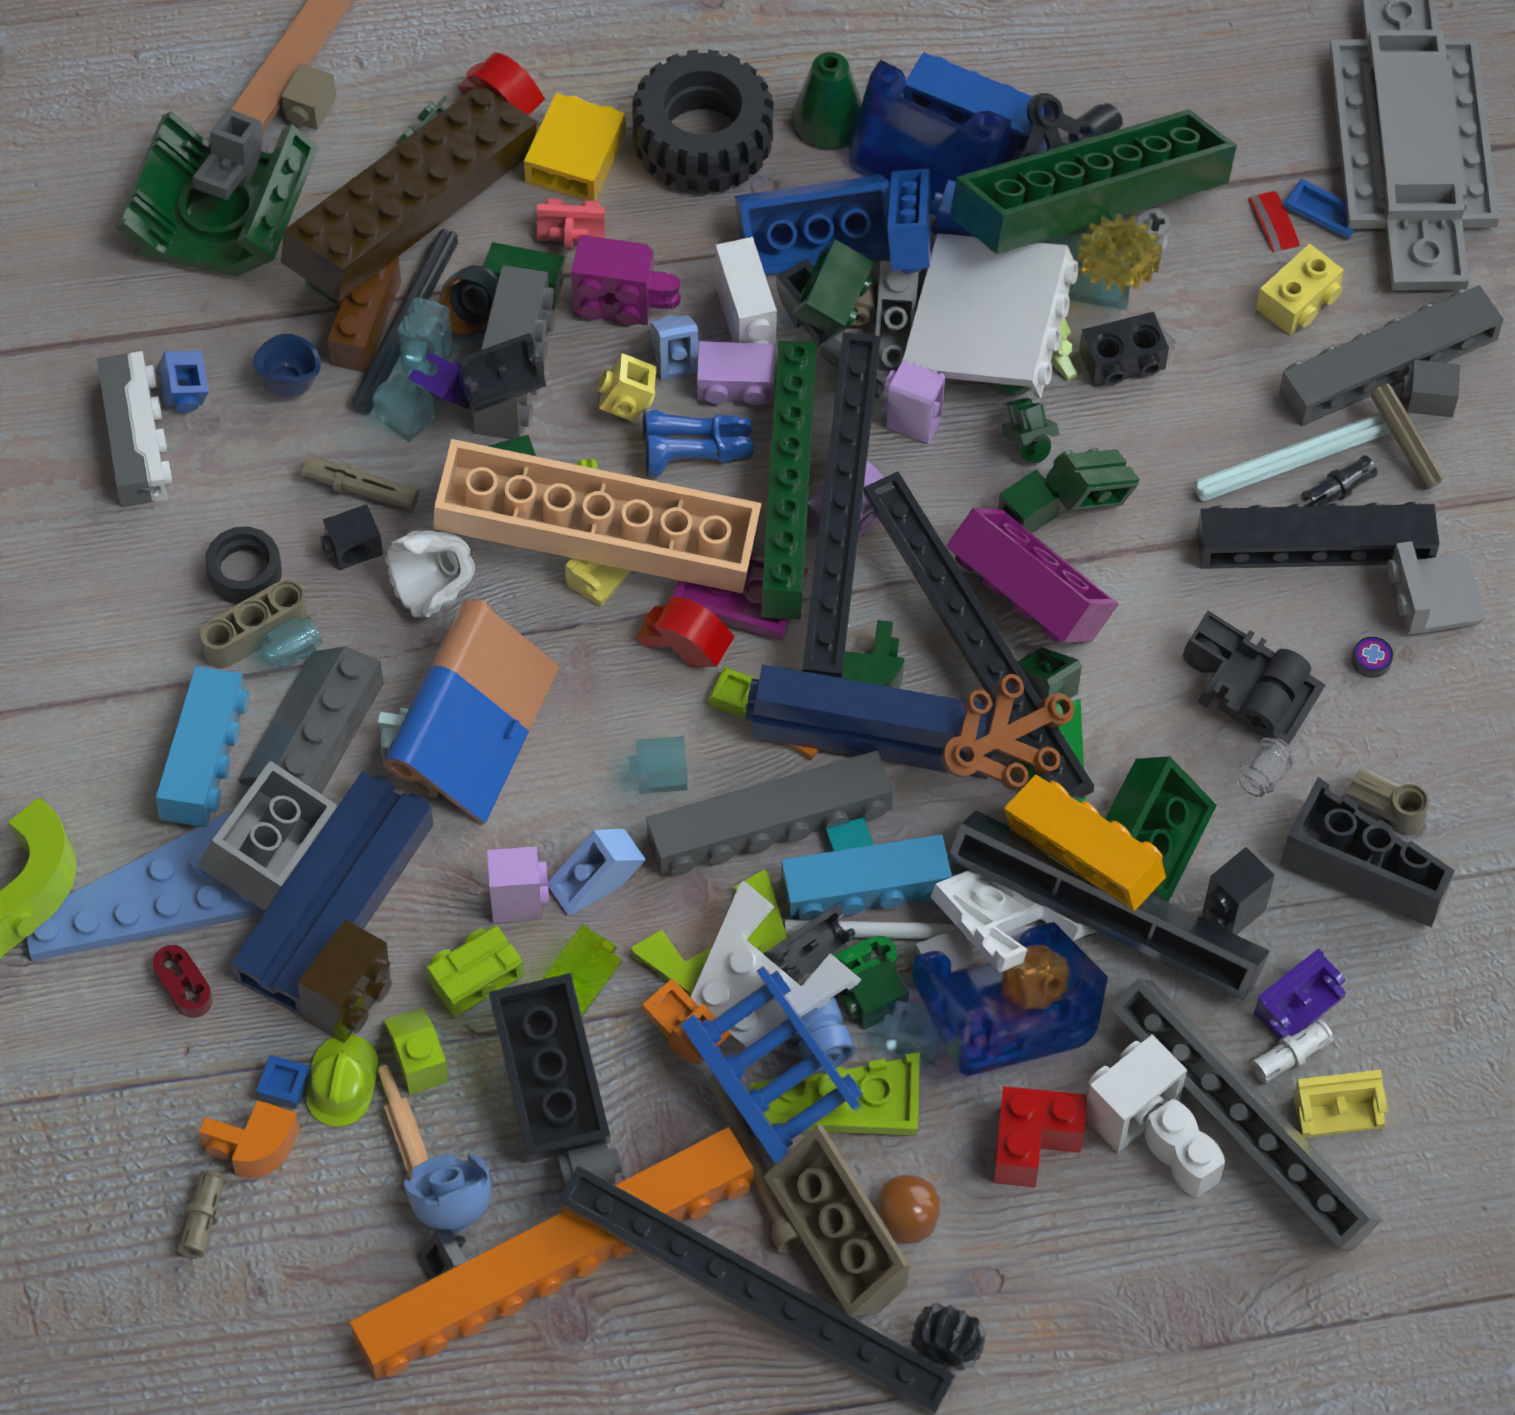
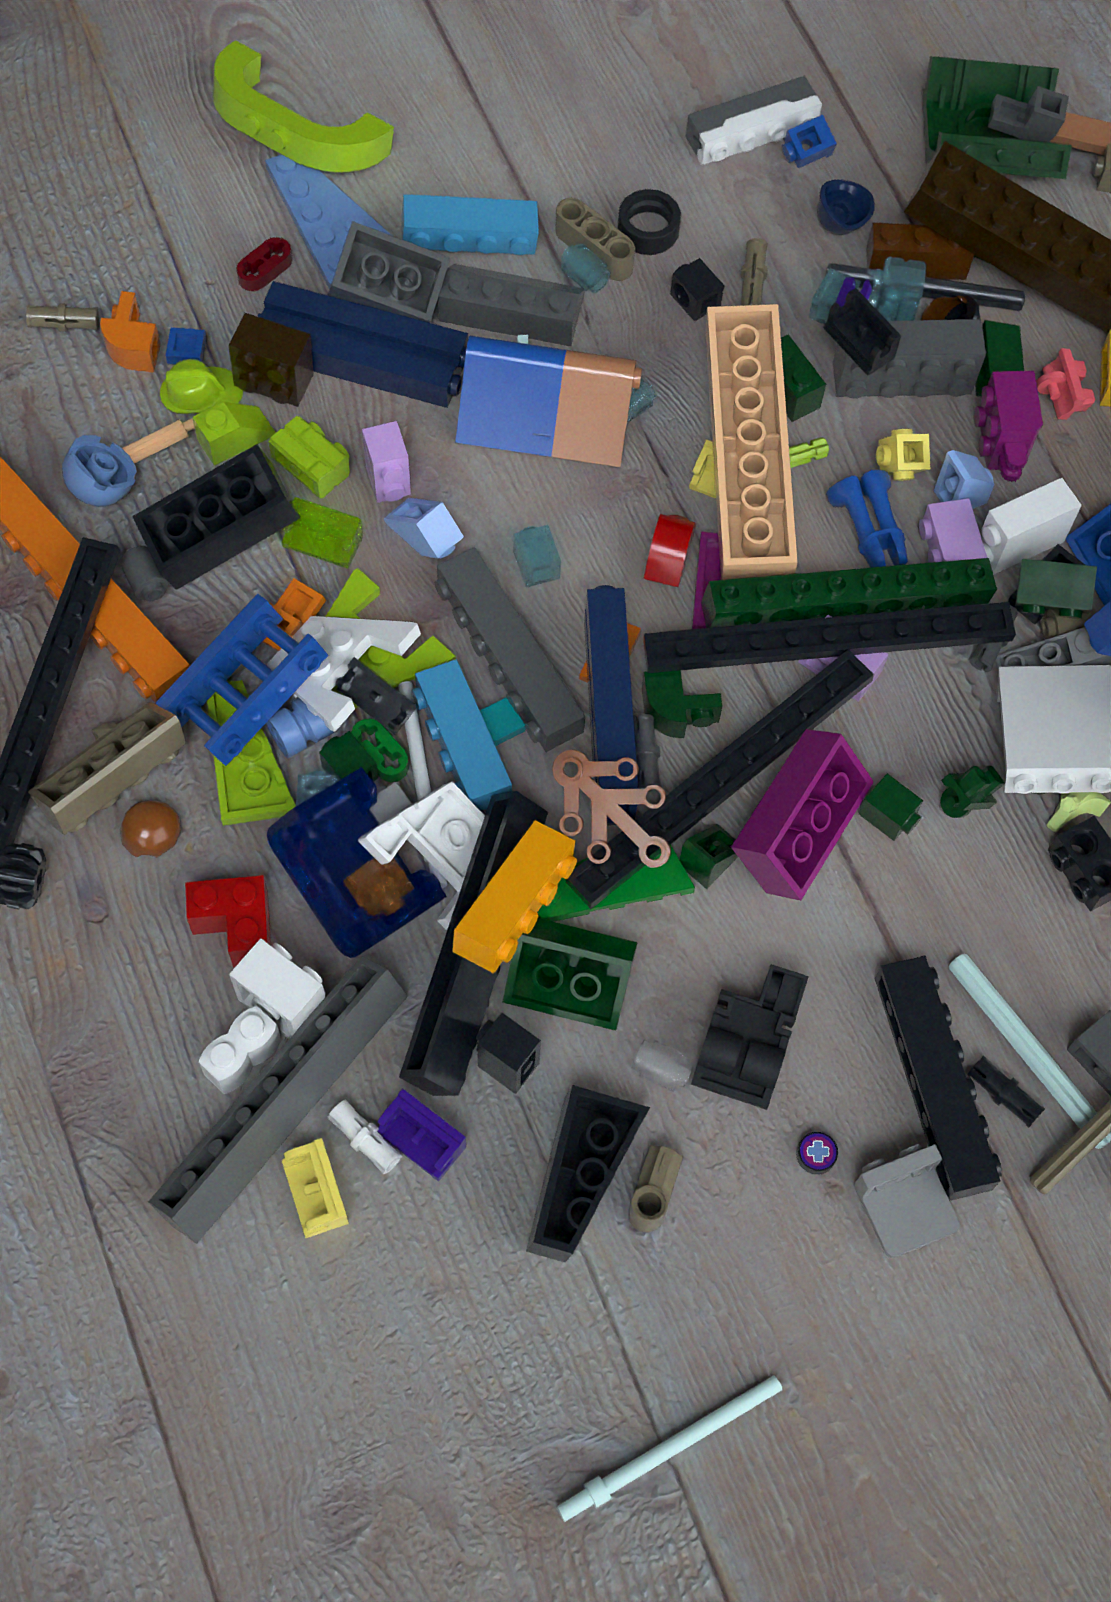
camera: 75 degrees right, 5 degrees up
(429, 570) = (676, 345): white hair -> none
(442, 1253) = (50, 485): black tile -> none
(731, 692) = (636, 602): lime tile -> none
(914, 400) = (964, 684): lavender brick -> none
(1091, 479) = (928, 851): dark green brick -> none

